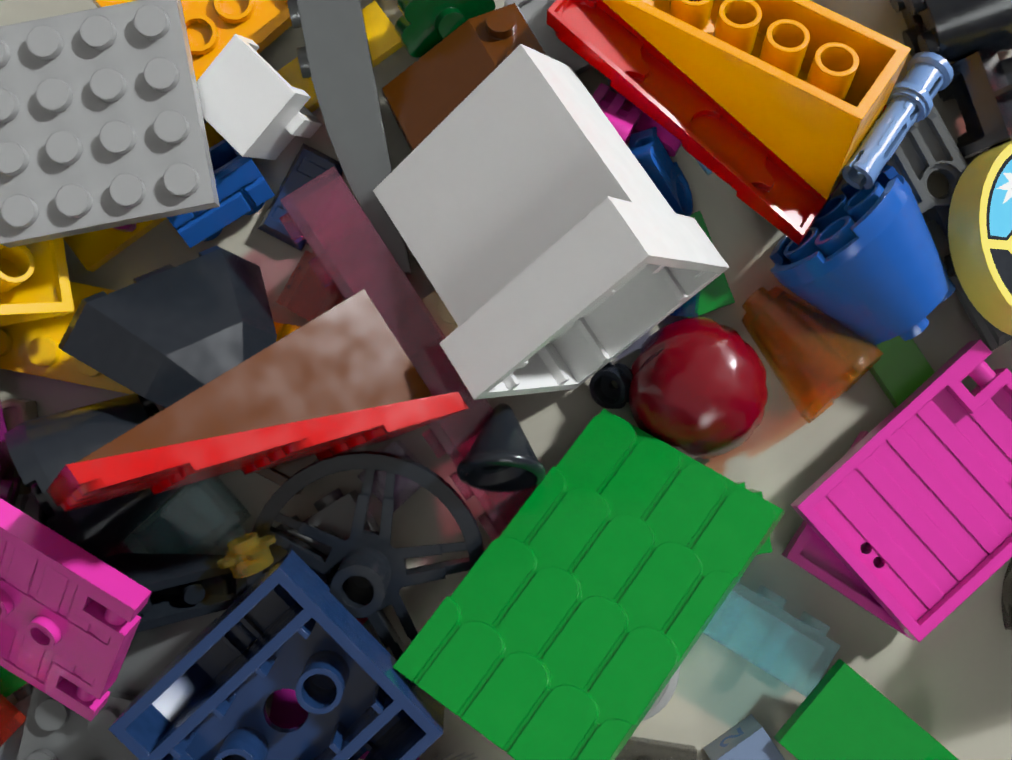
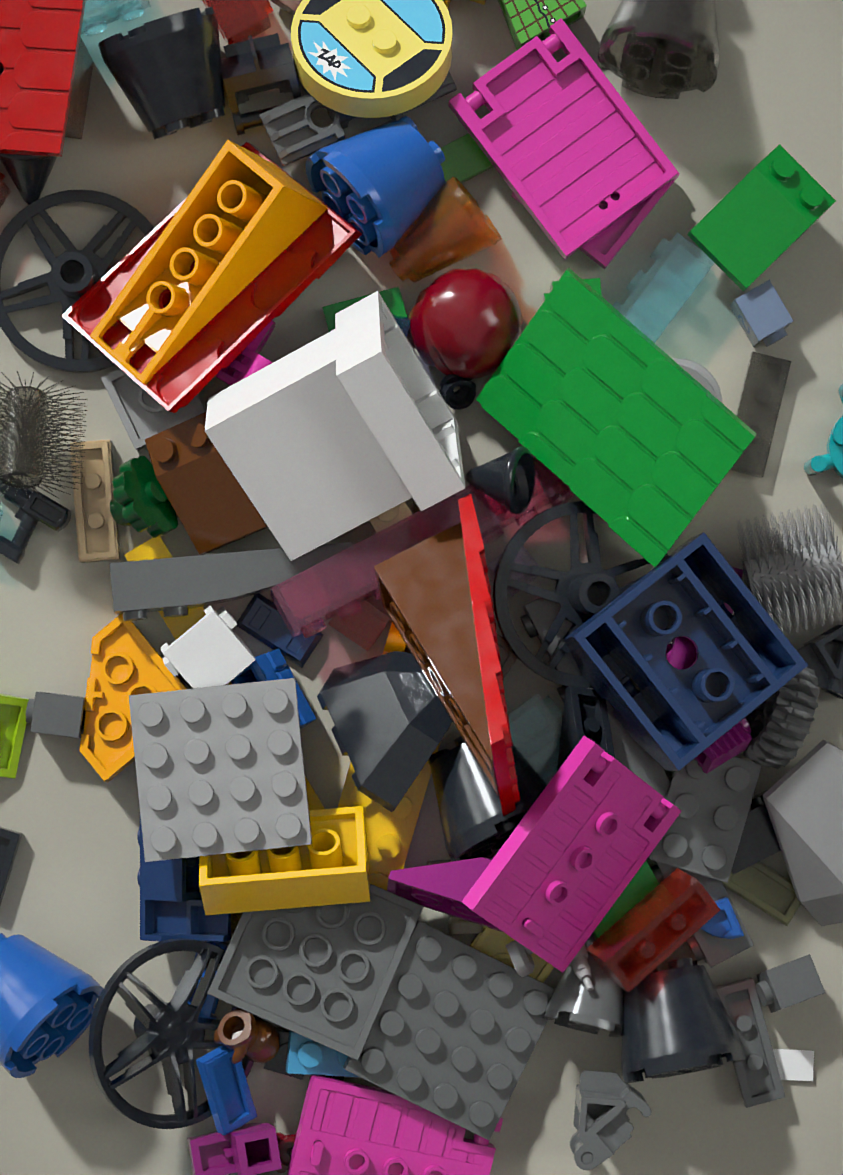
camera: 90 degrees left, 0 degrees up
(248, 555) = (565, 679): clear yellow plate -> none
(662, 171) = (293, 335): blue piece -> none
(906, 105) = (259, 138): medium blue pin -> none

